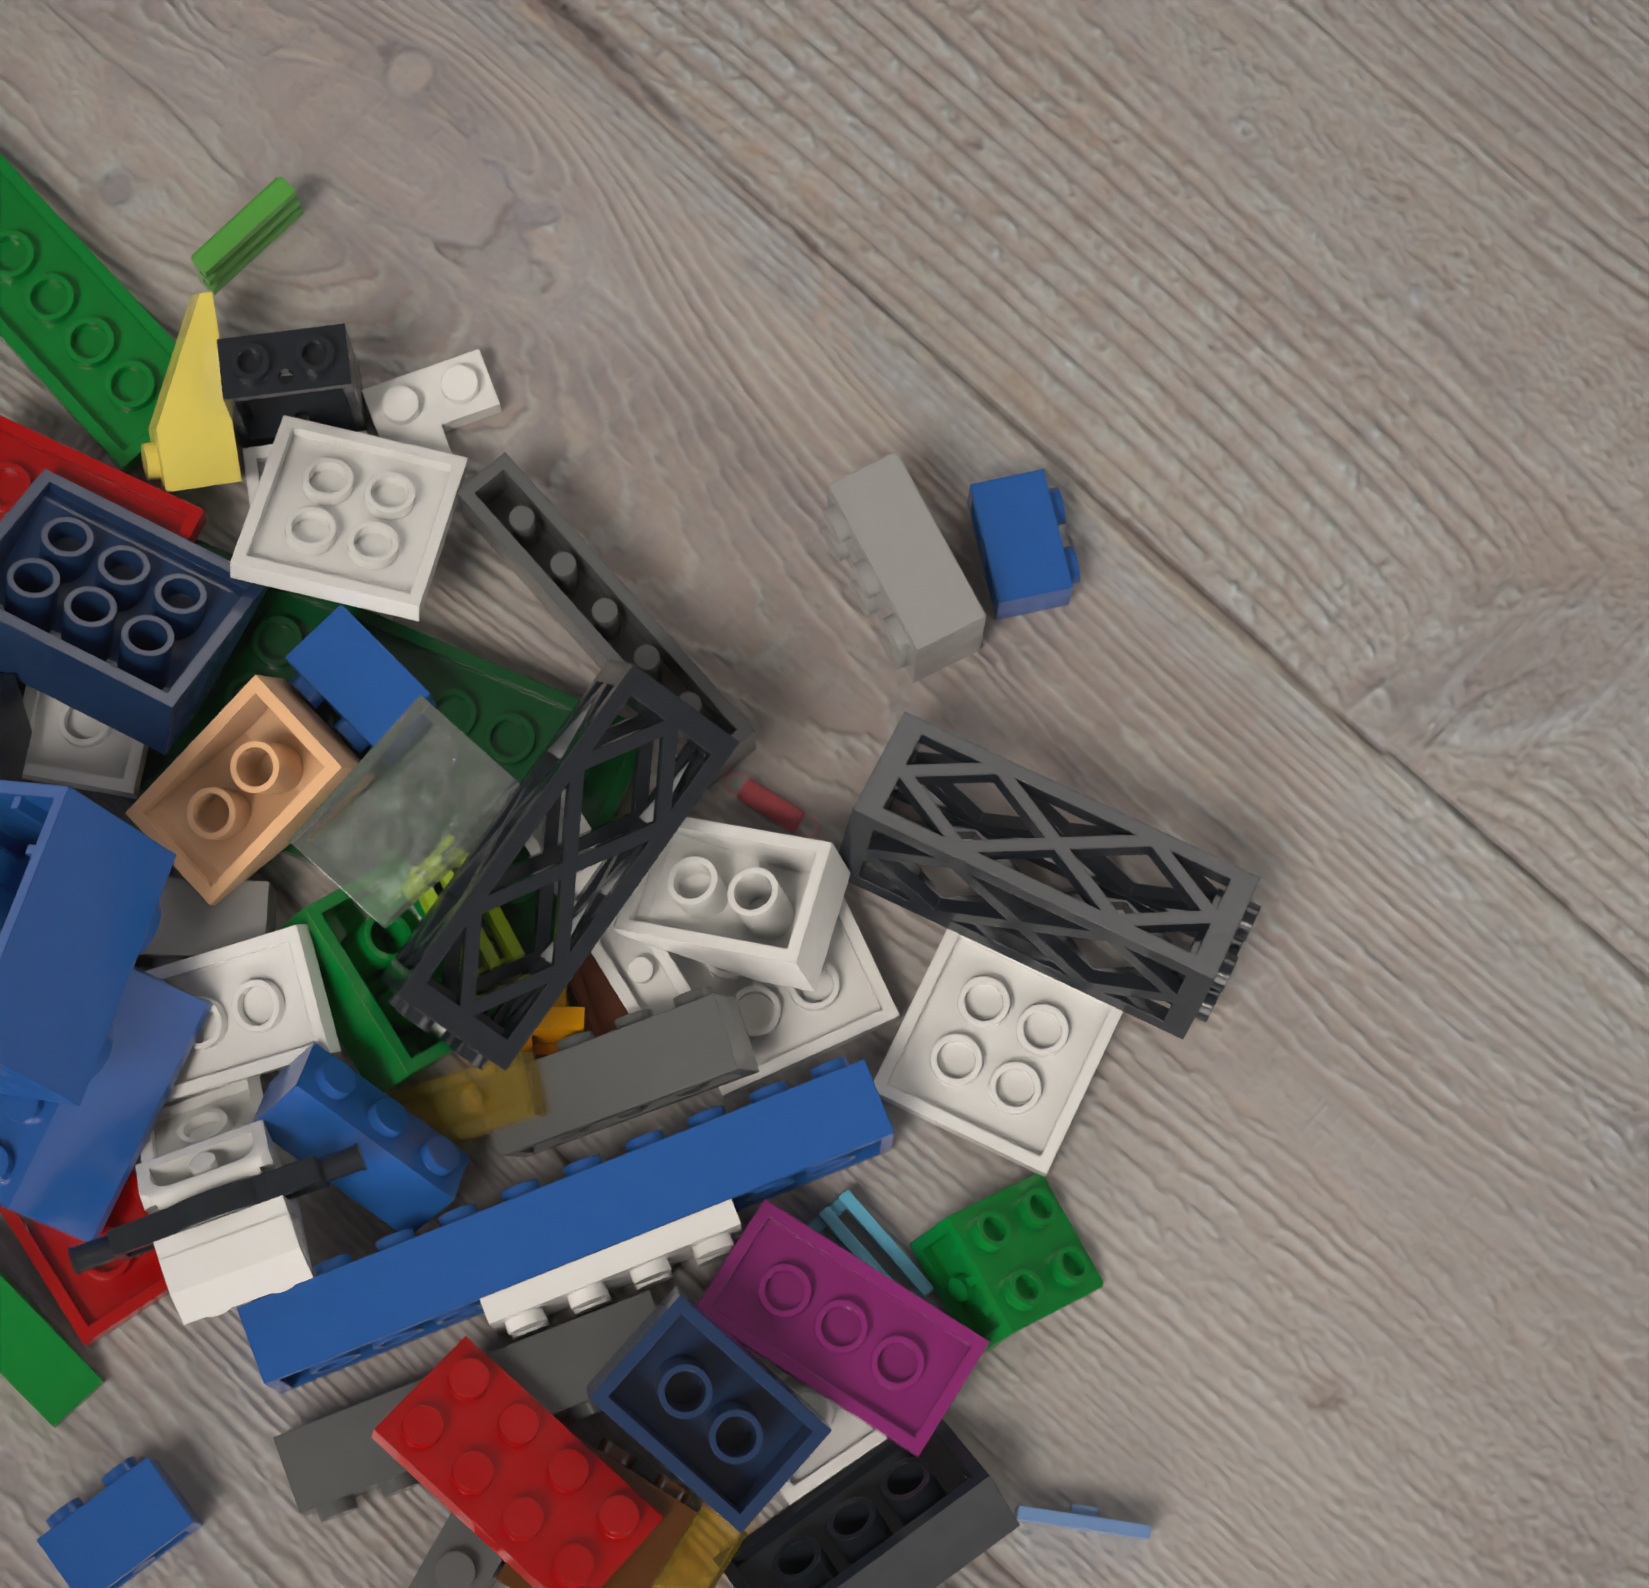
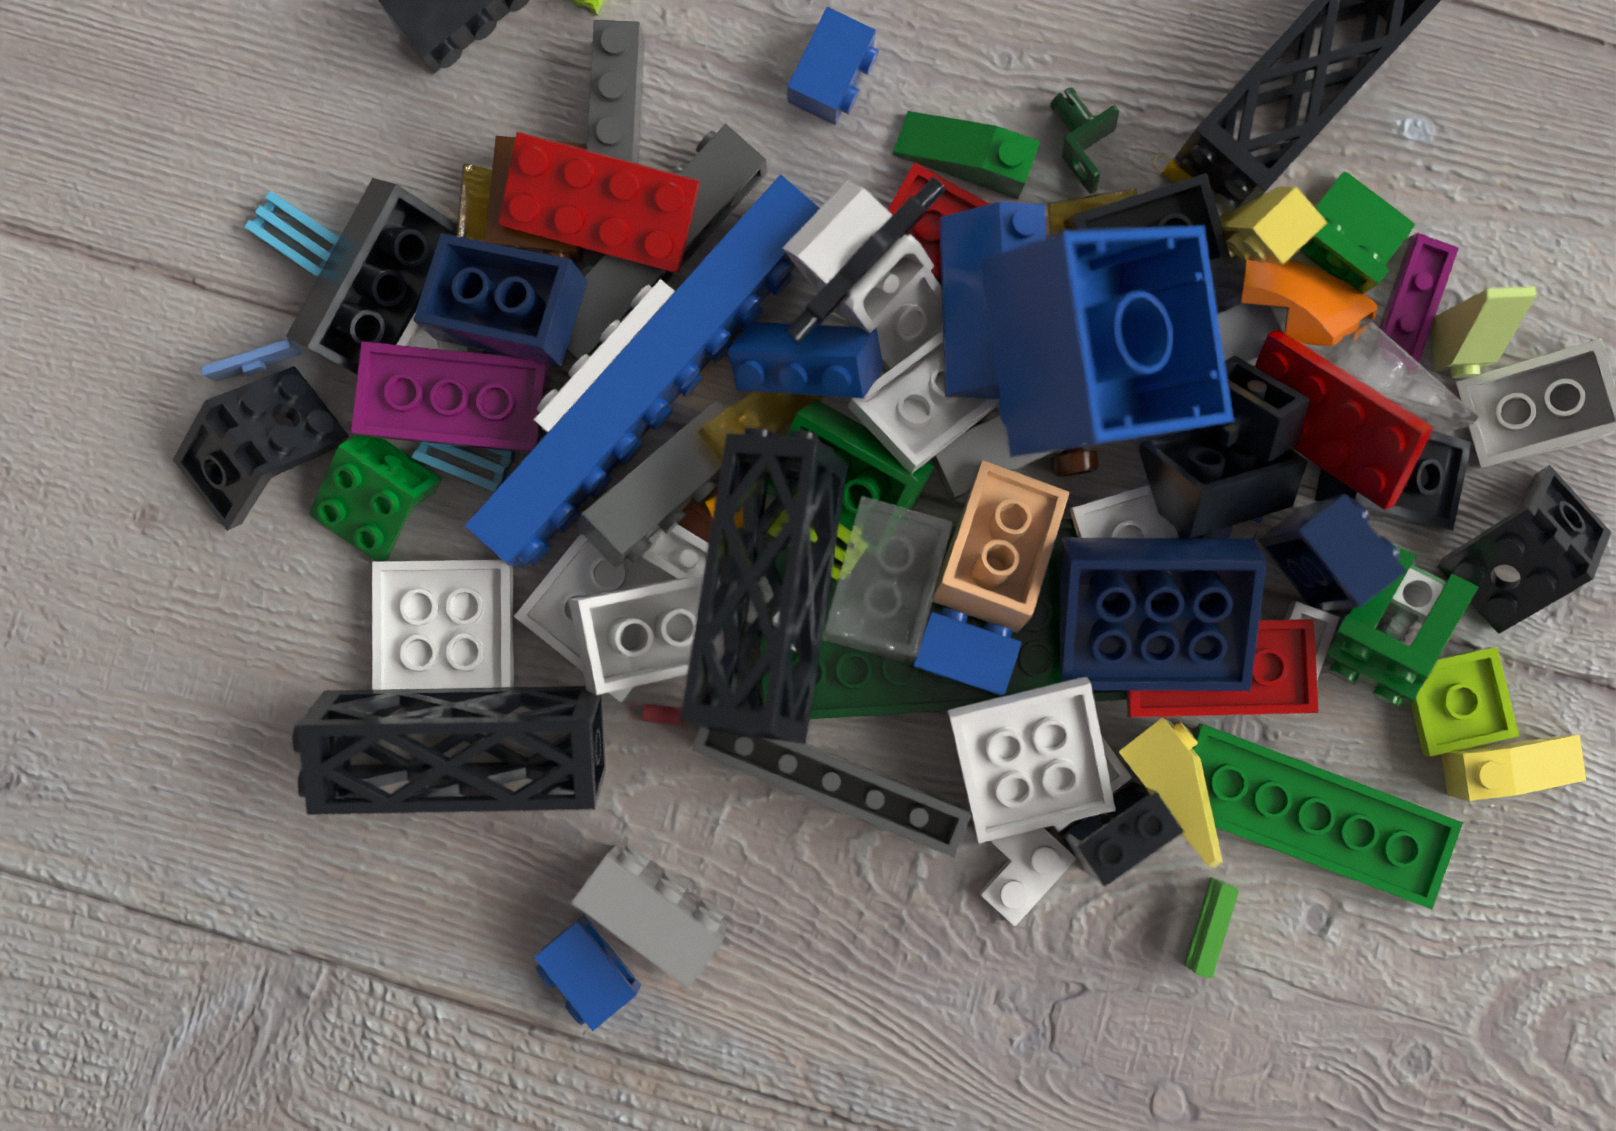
camera: 155 degrees right, 10 degrees up
(1126, 1399) = (240, 446): none -> black bracket

